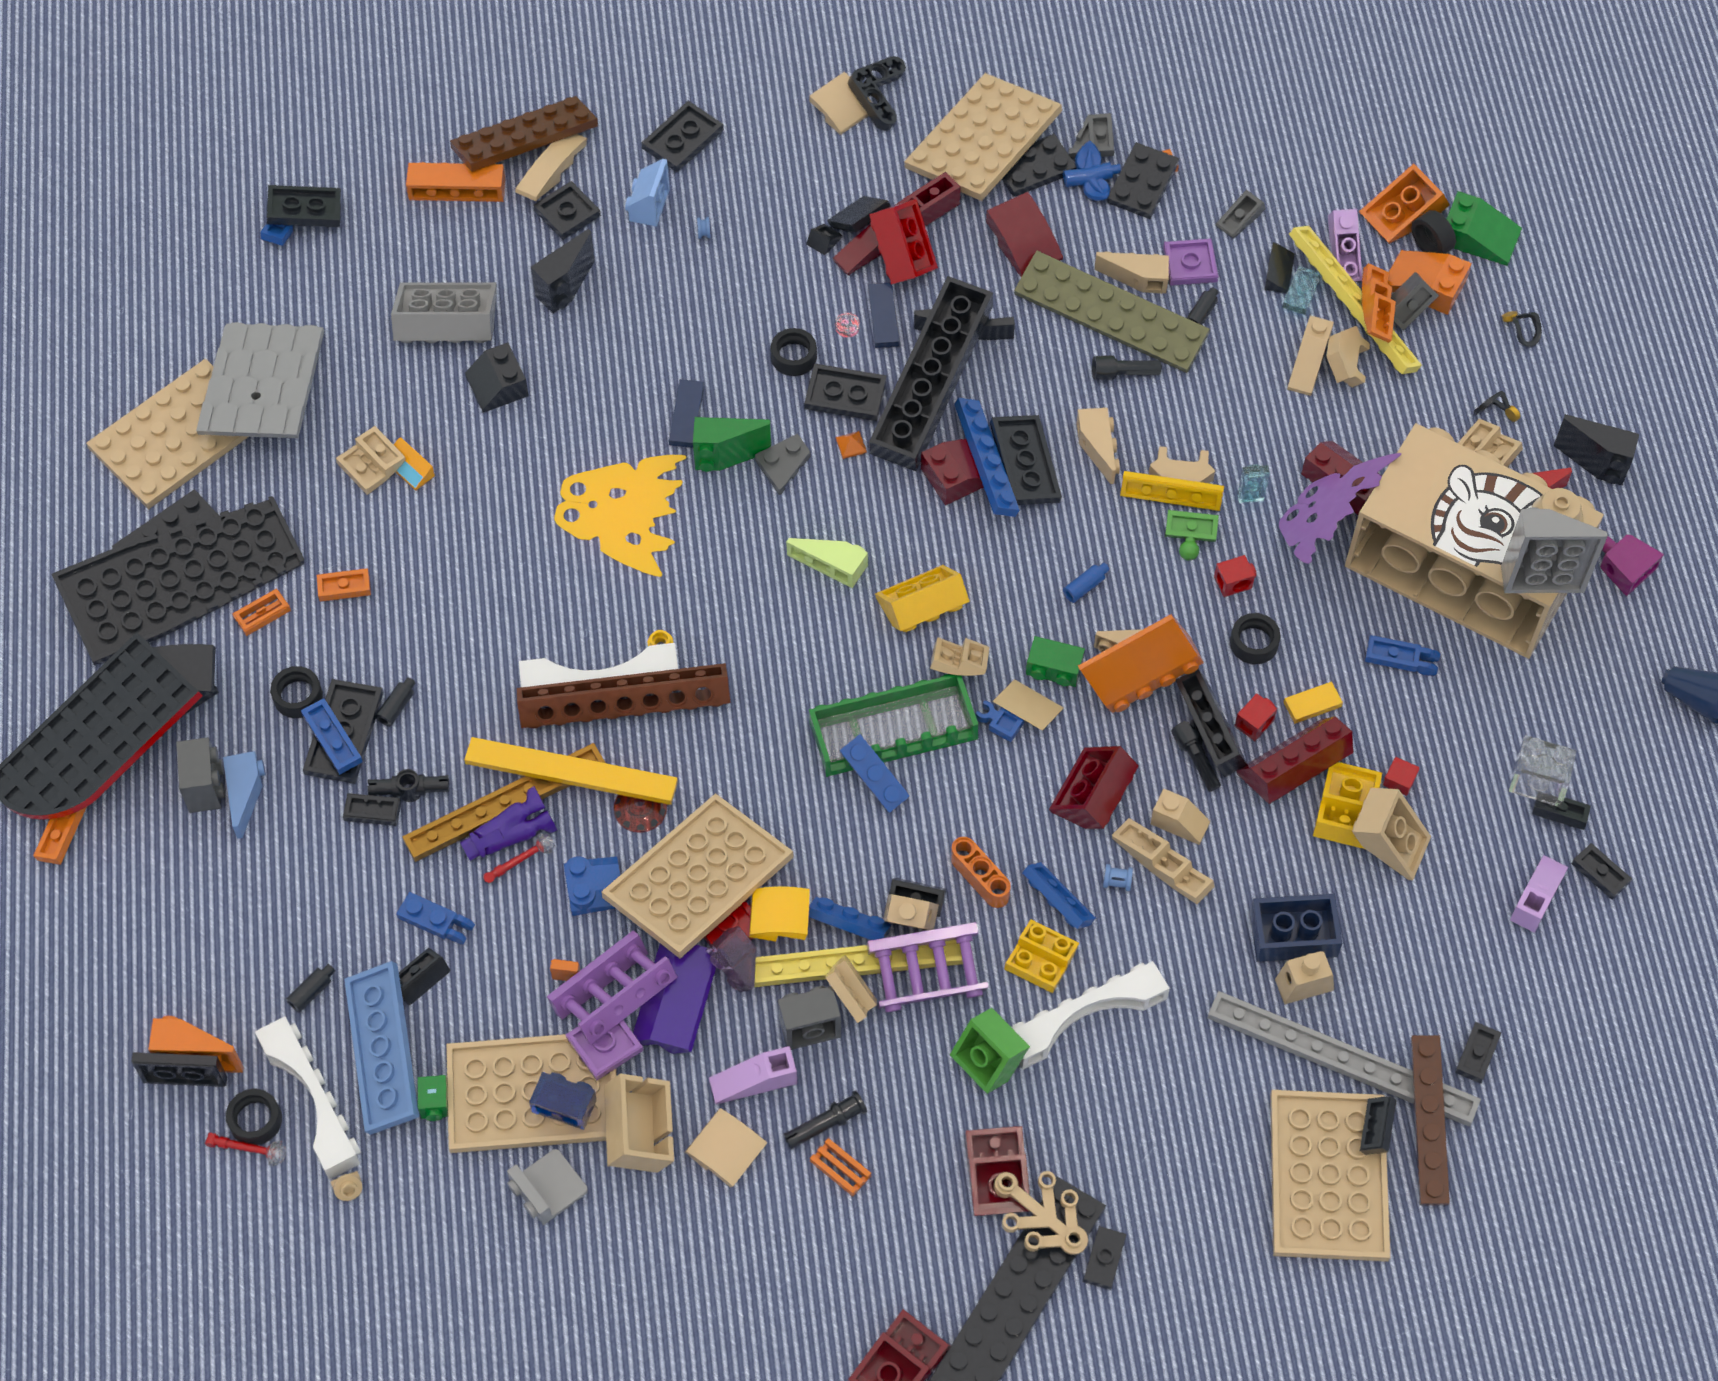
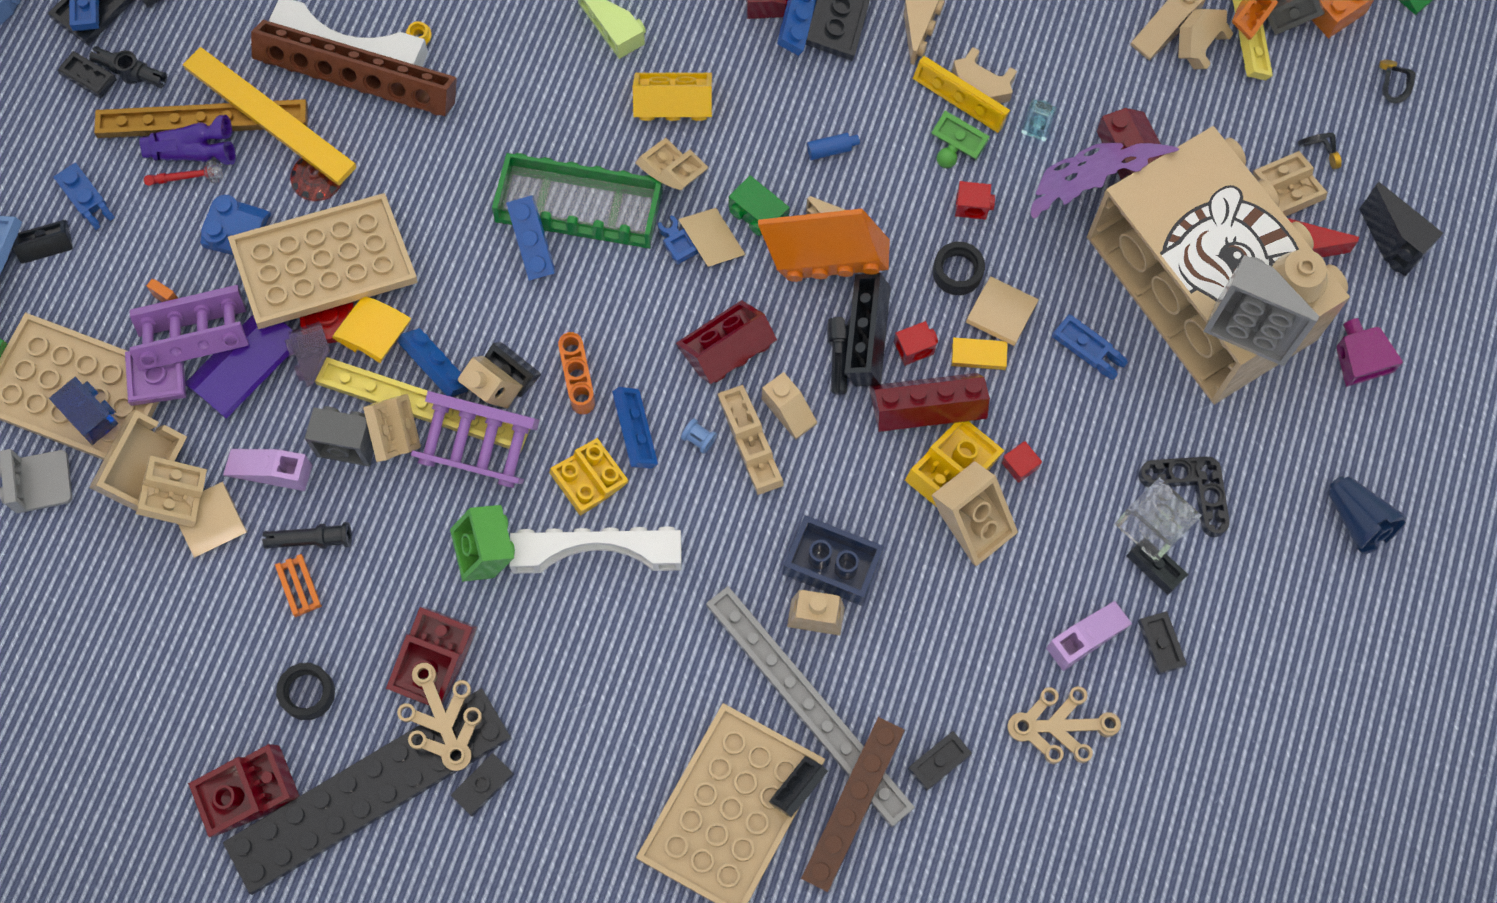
camera: 25 degrees right, 10 degrees up
(686, 1133) = (171, 491): none -> tan slope
(910, 1231) = (291, 675): none -> black tyre
(1312, 658) = (1002, 311): none -> tan slope
(1551, 724) = (1194, 477): none -> black beam
(1559, 978) = (1058, 726): none -> tan plant

